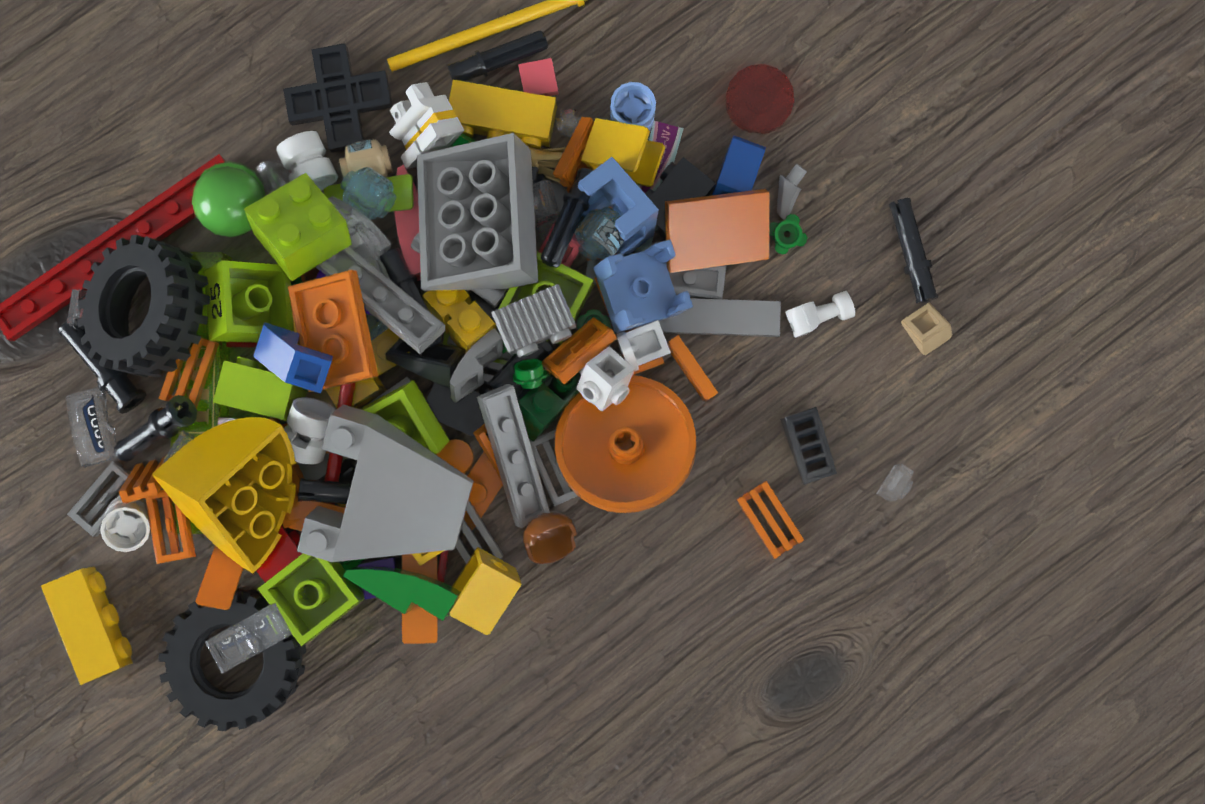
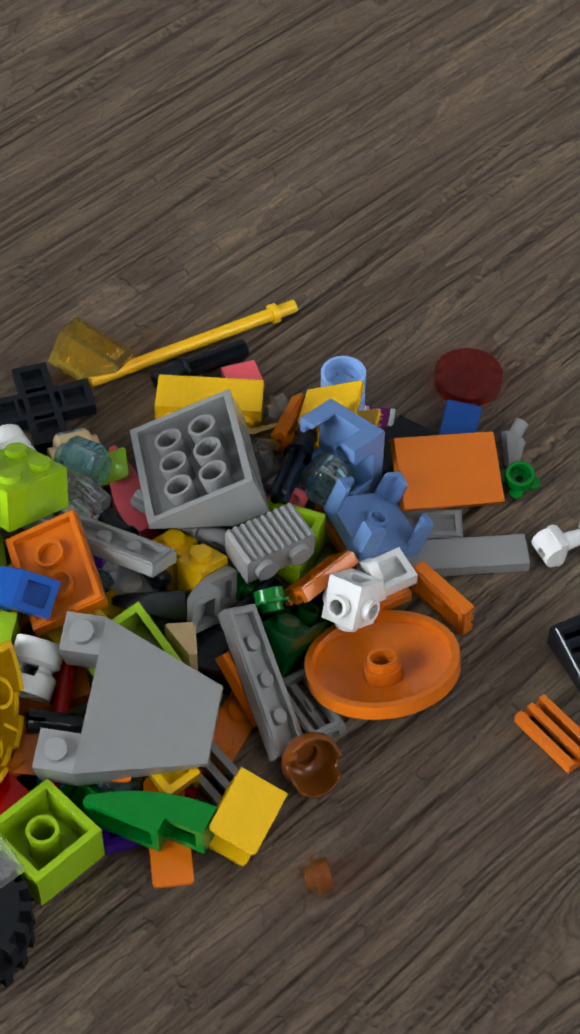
camera: 10 degrees left, 35 degrees down
(388, 39) = (87, 351): none -> clear yellow slope
(424, 123) = (134, 405): white hips -> none
(447, 419) = (183, 641): none -> tan slope
(543, 641) = (318, 876): none -> clear orange plate

